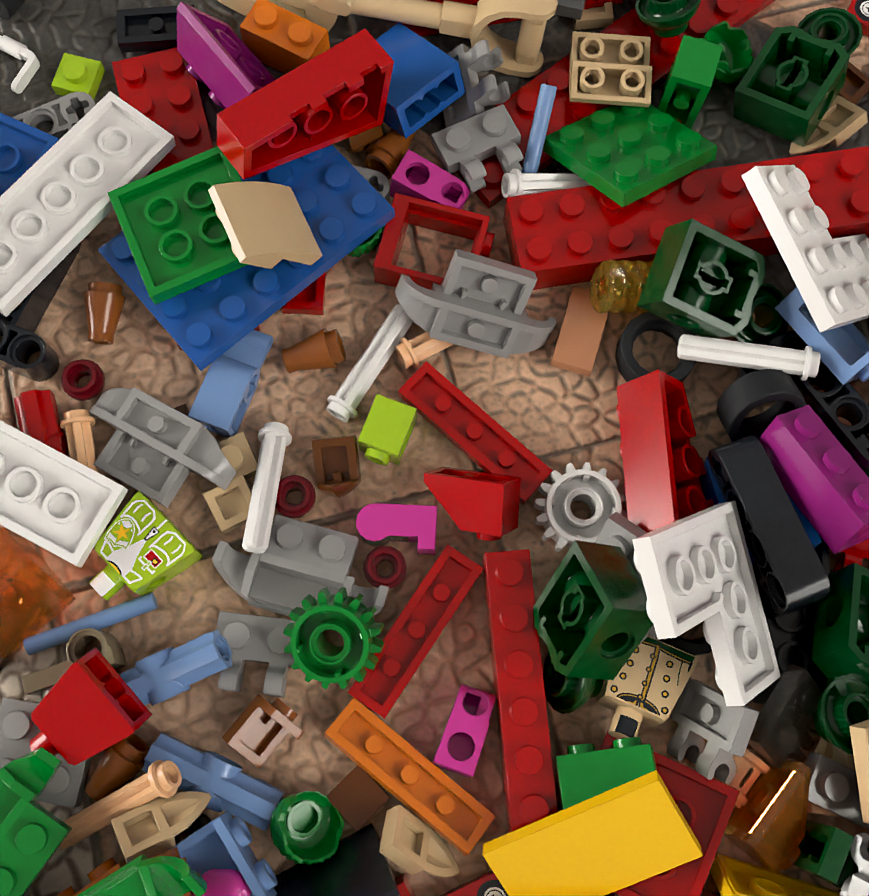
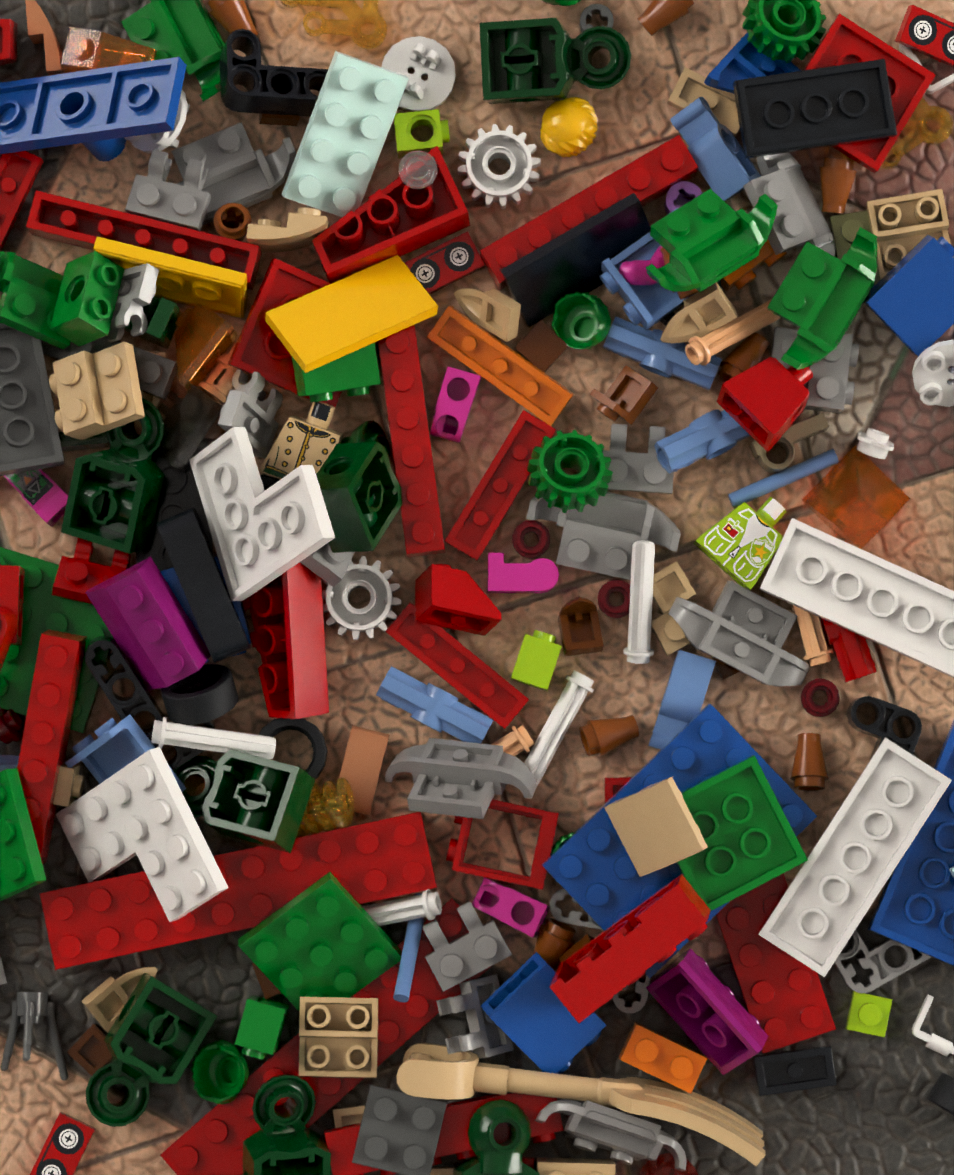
camera: 175 degrees left, 10 degrees up
(501, 389) = (433, 707): none -> medium blue piece

